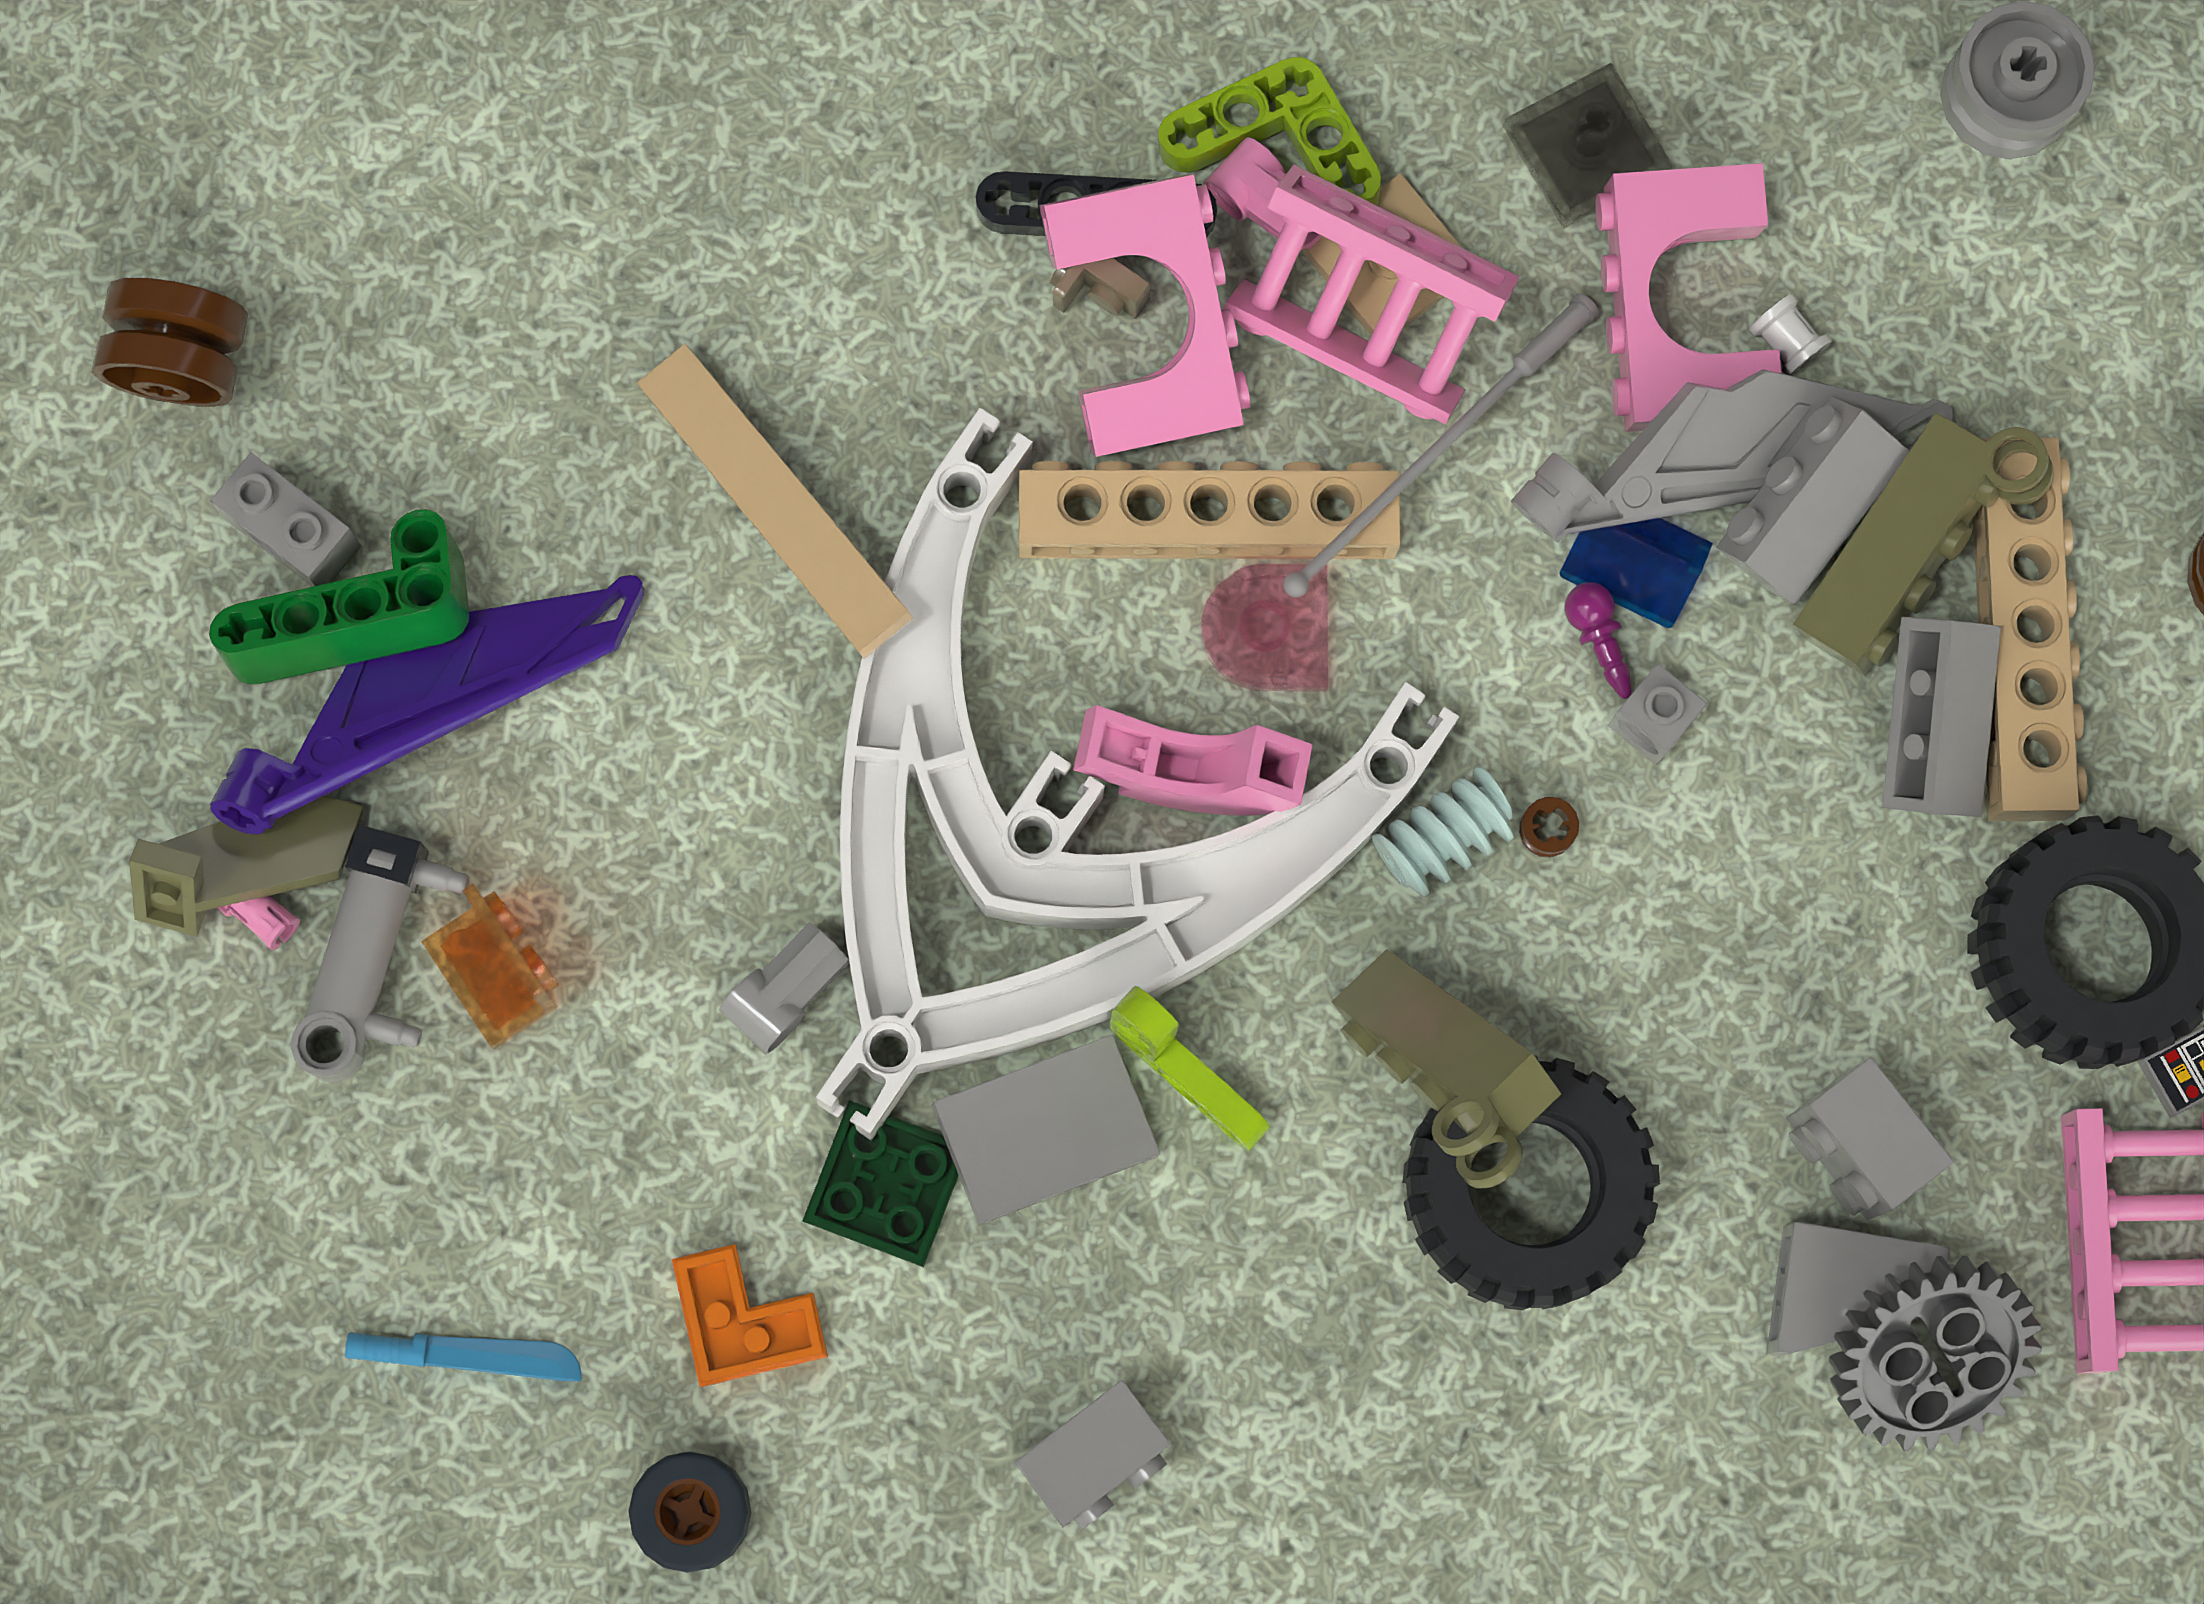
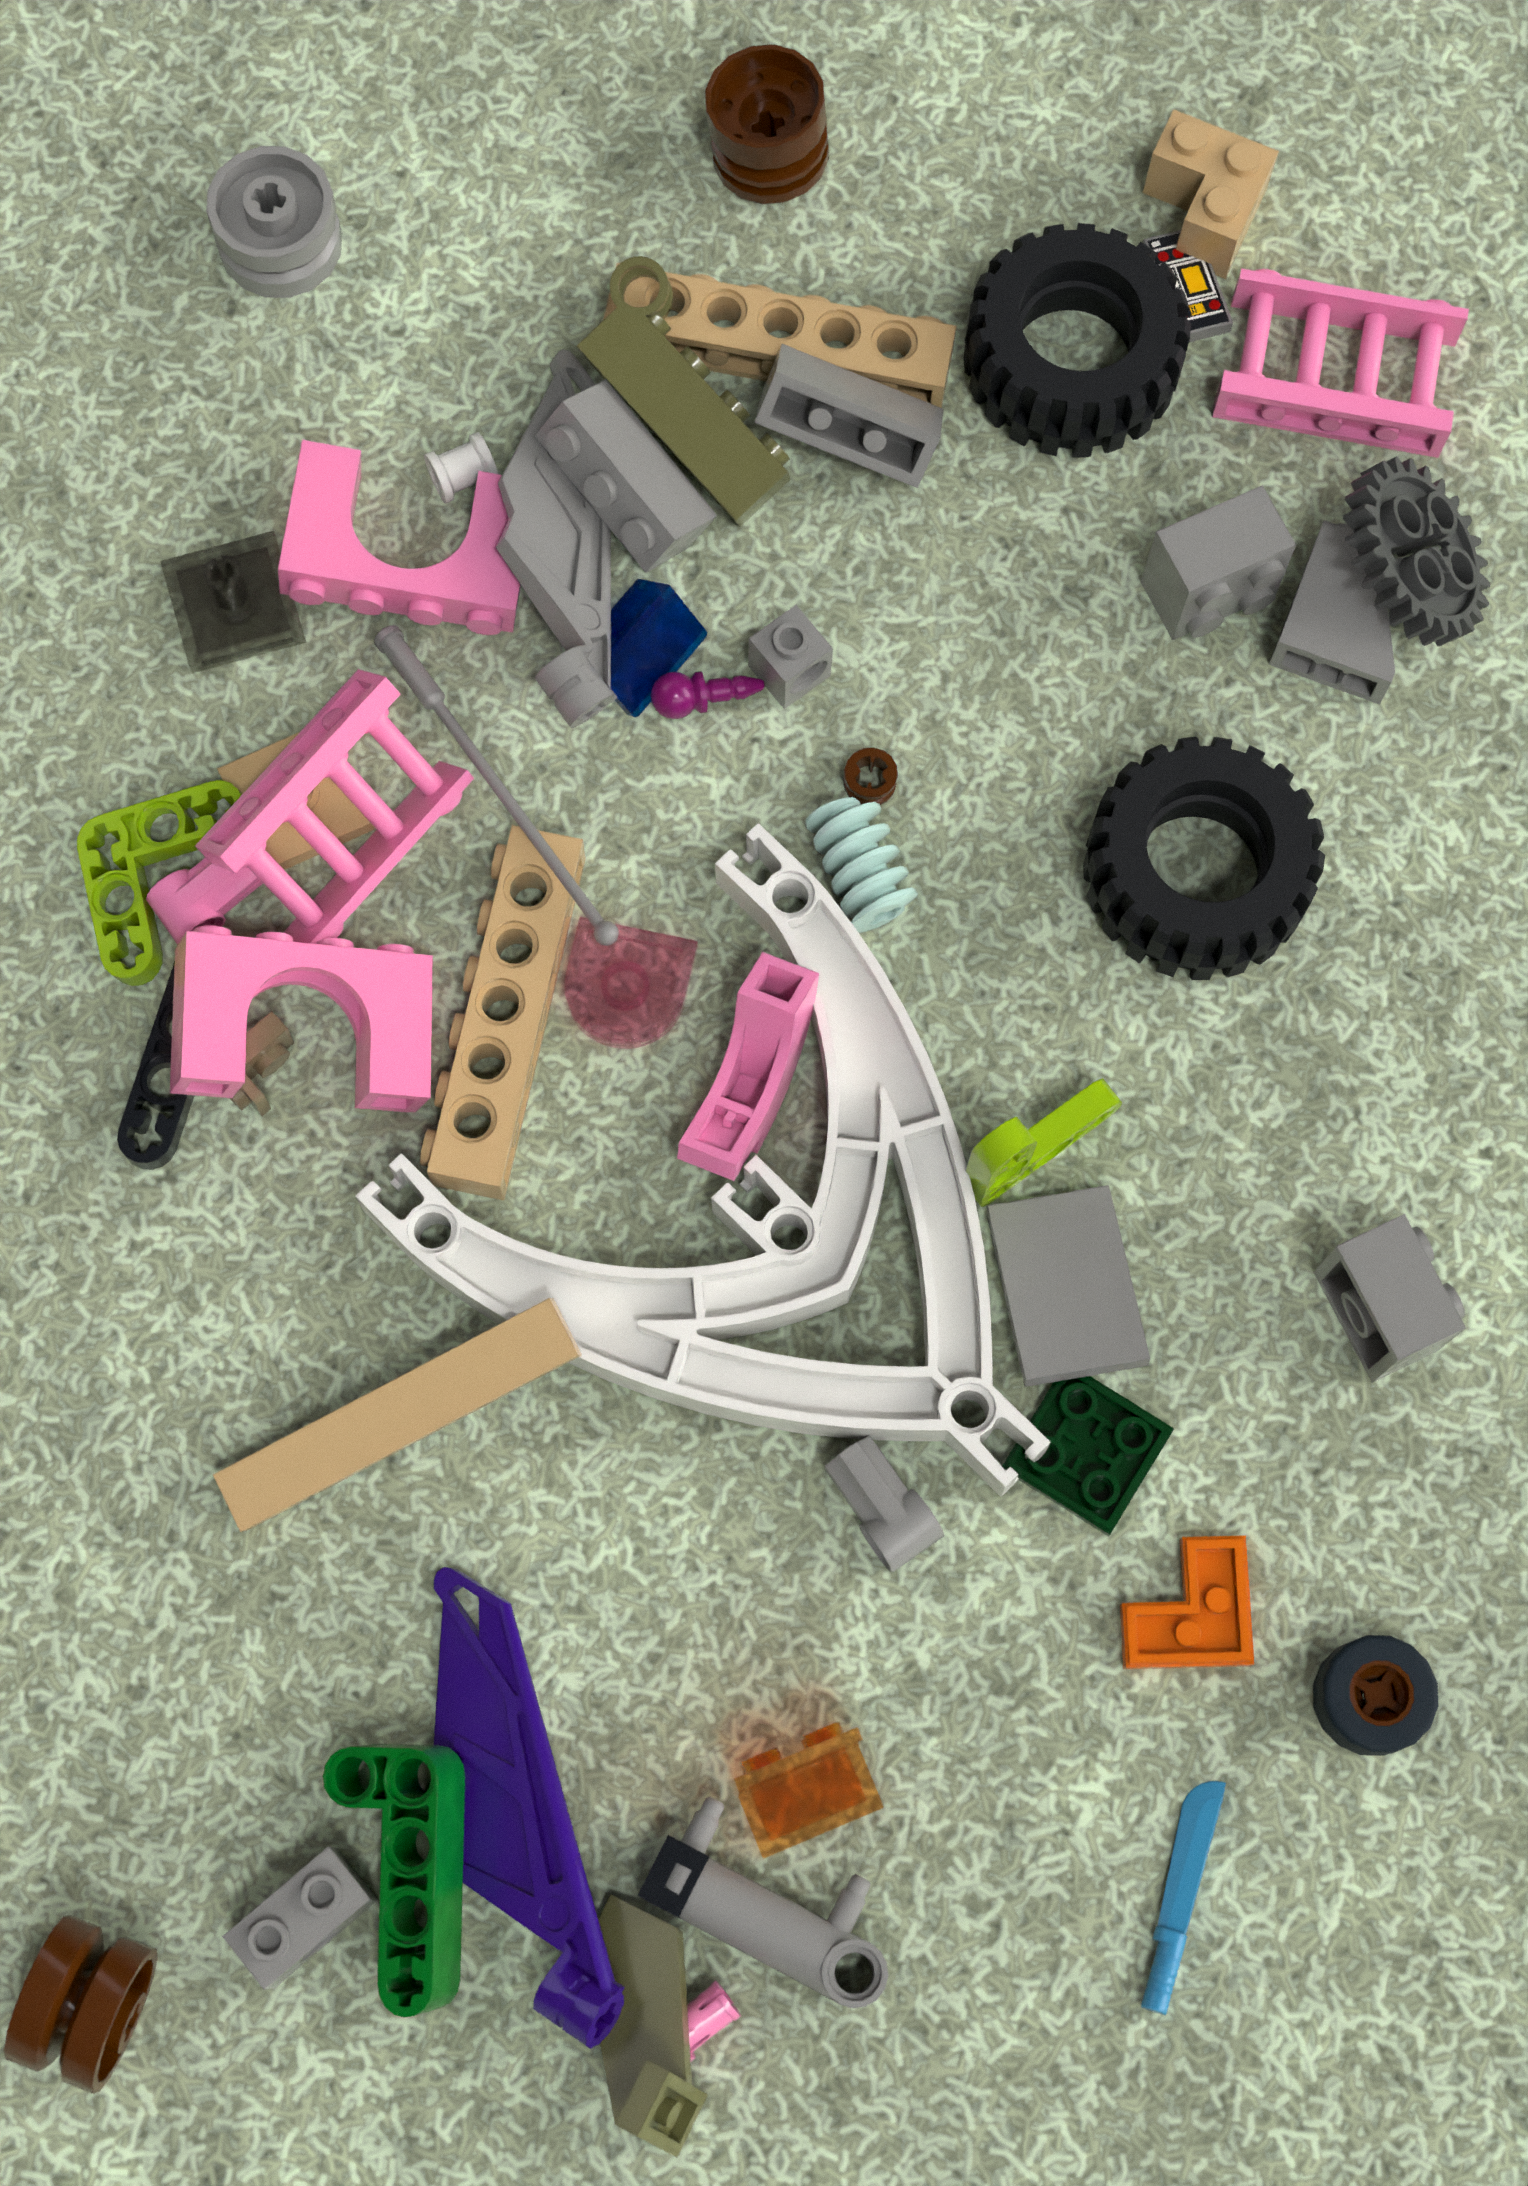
camera: 75 degrees left, 5 degrees down
(1453, 1059) = (1090, 885): olive hinge -> none

